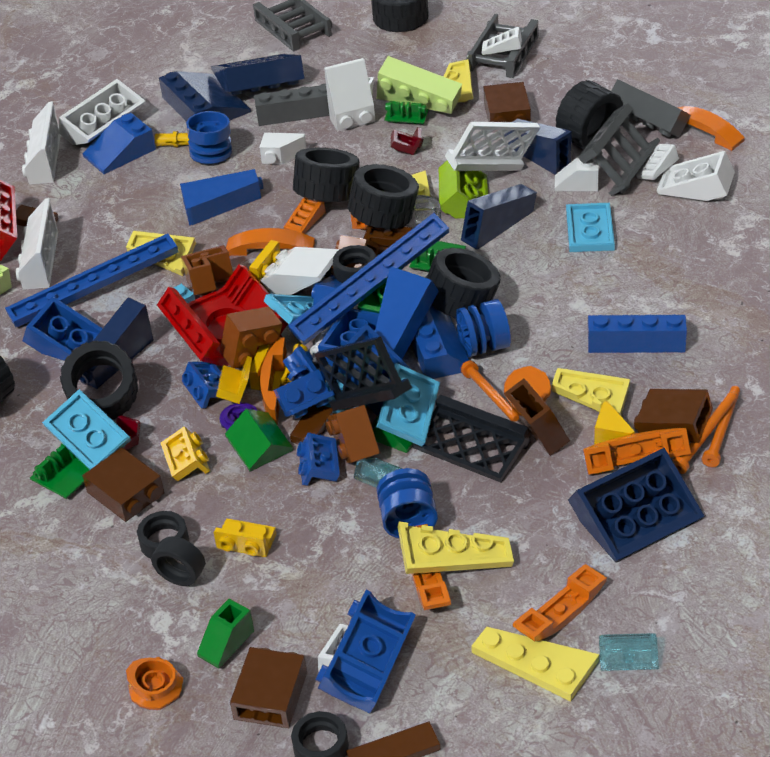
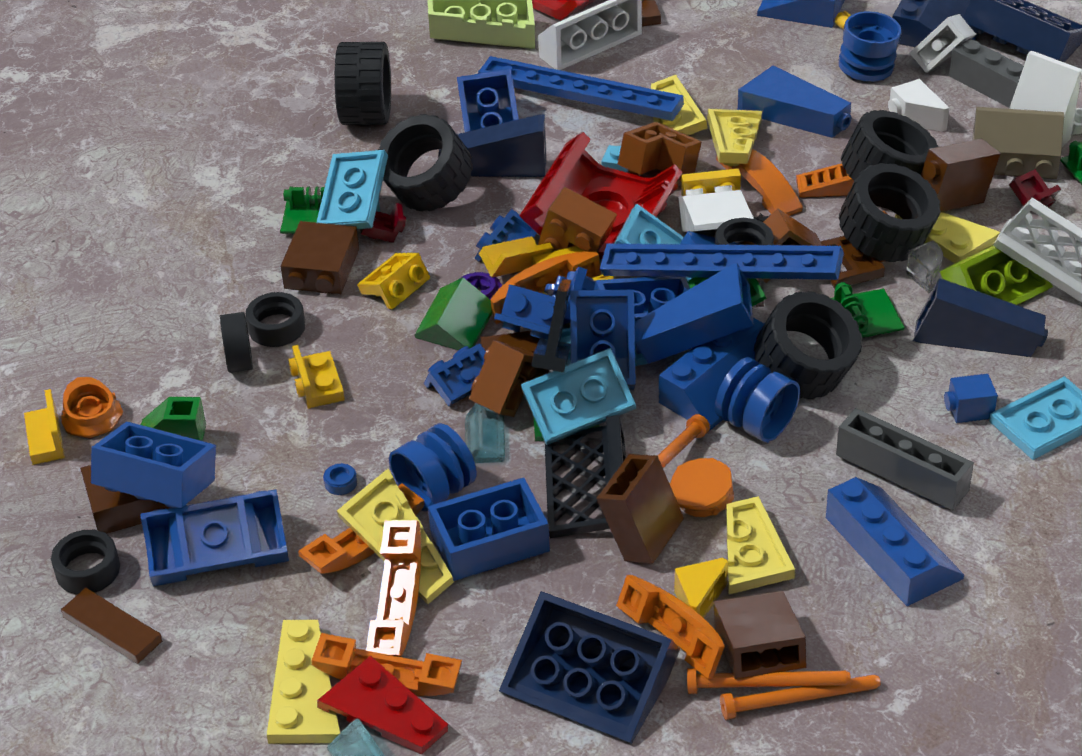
camera: 55 degrees right, 0 degrees up
(152, 717) = (44, 432): none -> yellow panel
(219, 231) = (733, 134): none -> light yellow wing
(241, 108) = (940, 42): none -> white slope
(291, 644) = (153, 464): none -> blue brick
(357, 565) = (340, 479): none -> blue tile
(364, 124) = (1023, 138): none -> dark tan slope
(373, 147) = (961, 172): none -> reddish brown brick
(484, 498) = (489, 528): none -> blue brick
(499, 570) = (399, 588): none -> slope
(553, 246) = (971, 398): none -> blue brick
(582, 292) = (904, 458): none -> dark grey brick
(586, 620) = (385, 706): none -> red wing

